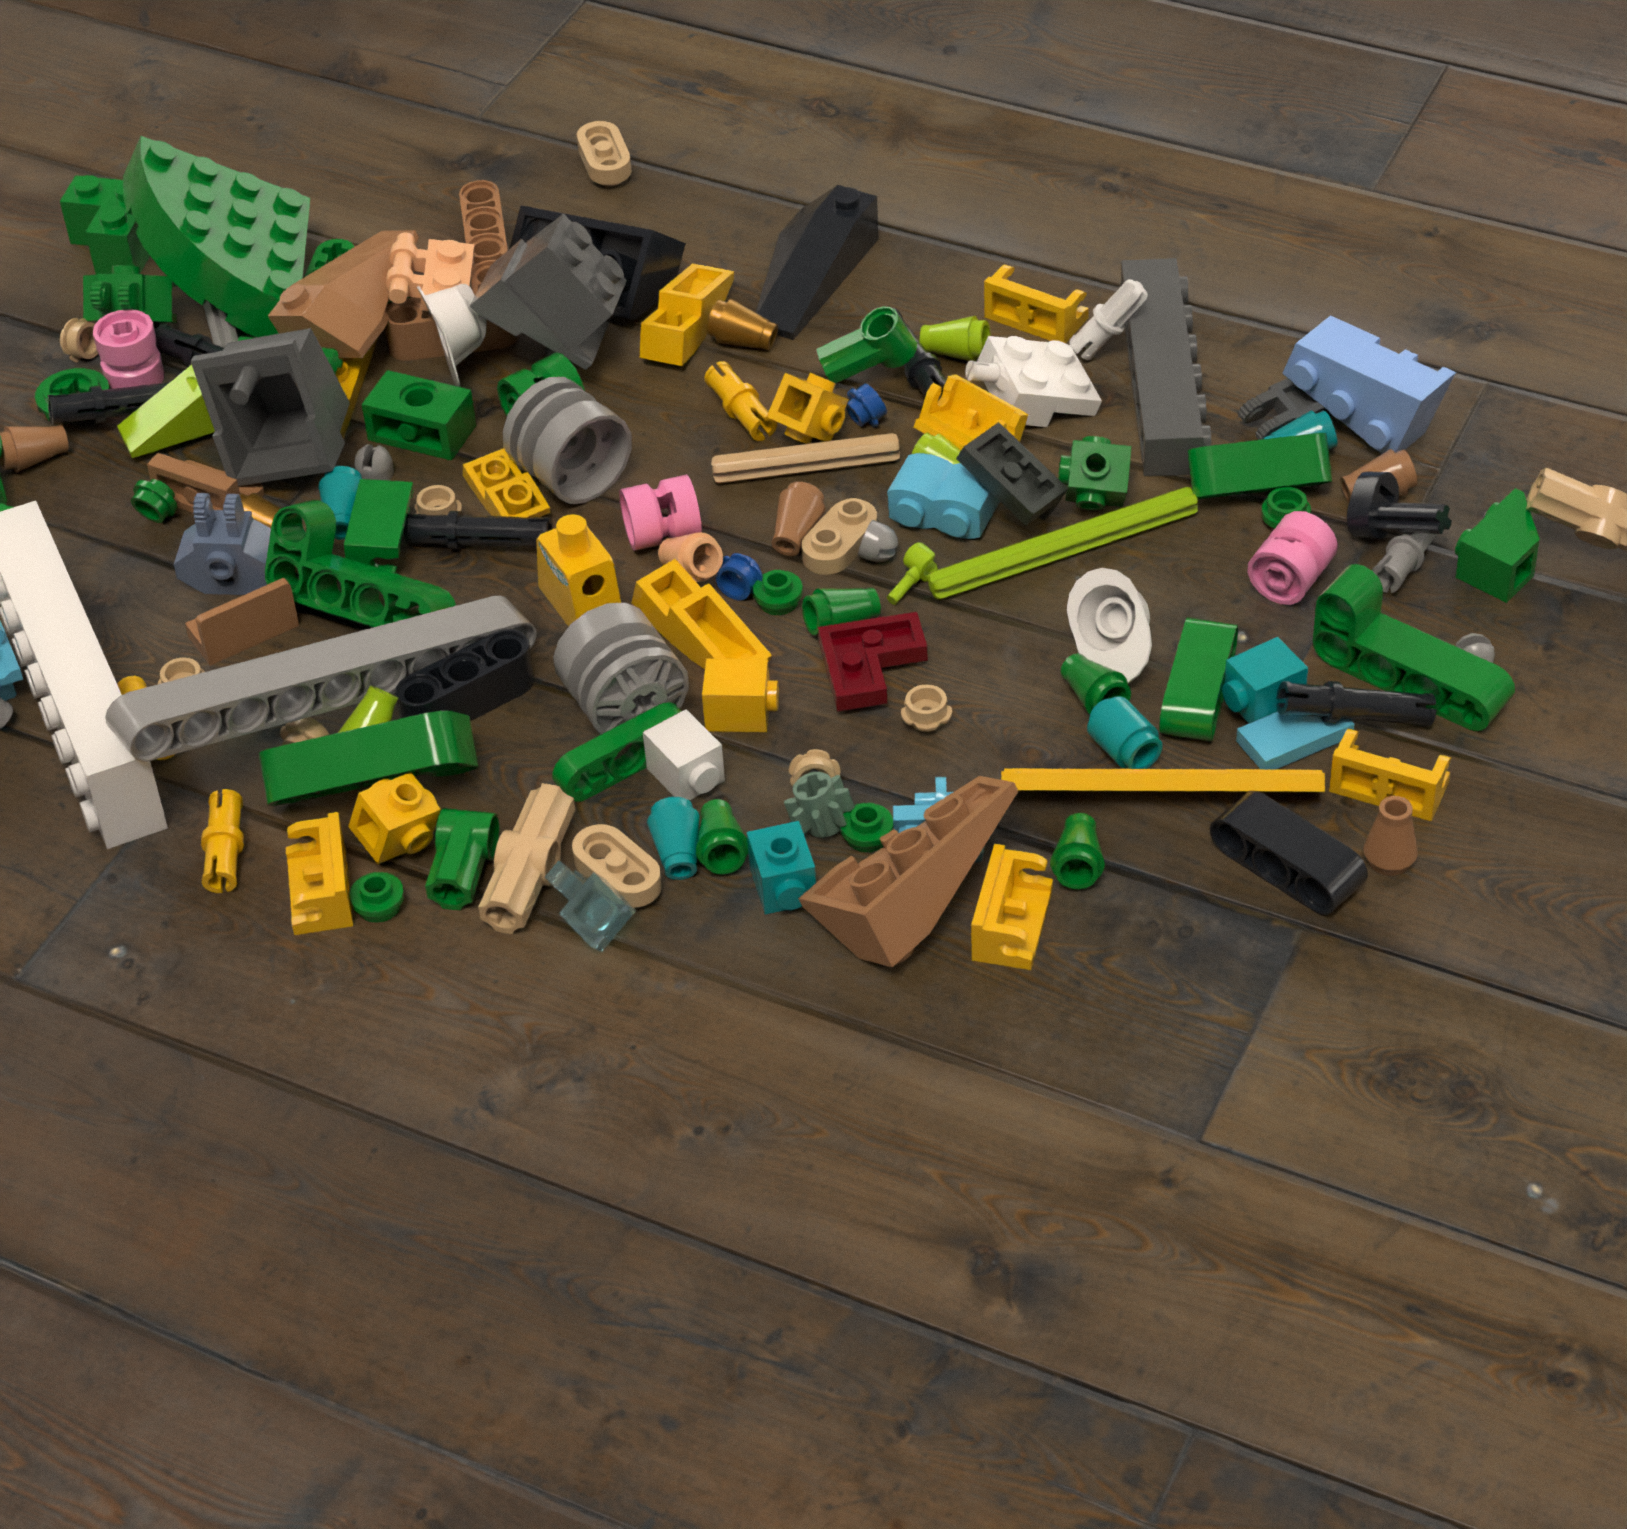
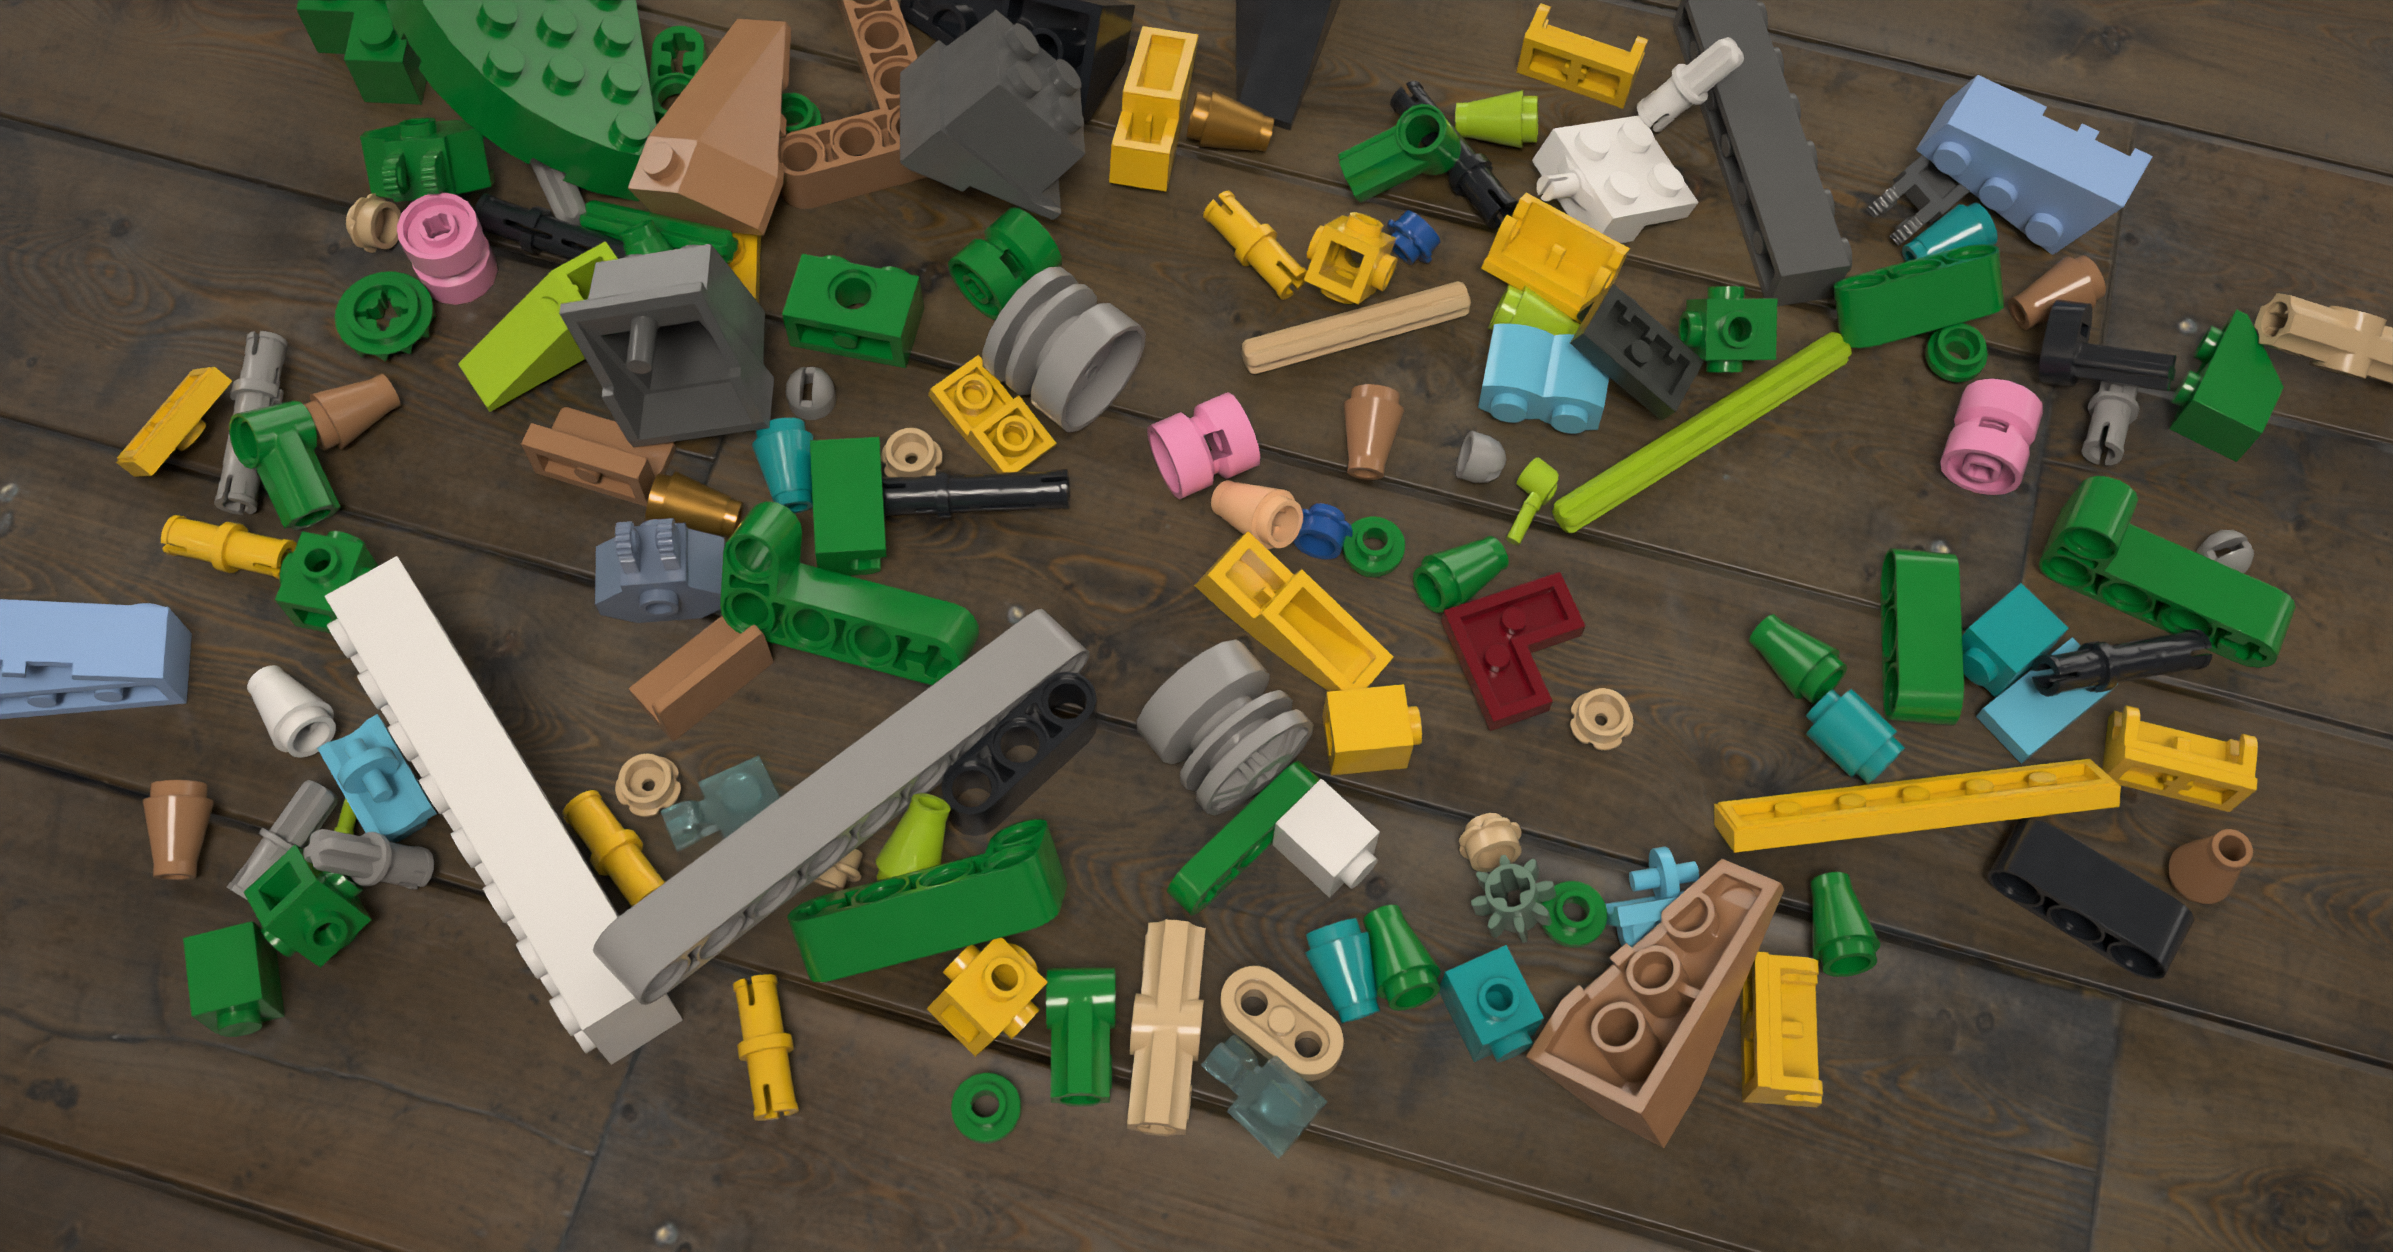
camera: 15 degrees left, 20 degrees up
(99, 403) = (439, 334): black pin -> none
(154, 500) = (538, 486): green plate -> none
(318, 876) = (903, 1091): yellow hinge -> none
(443, 265) = (845, 91): light nougat plate -> none
(457, 323) = (877, 176): white piece -> none
(574, 559) = (1123, 561): yellow torso -> none
(837, 536) = (1428, 443): tan plate -> none
(1110, 621) = (1804, 572): white piece -> none

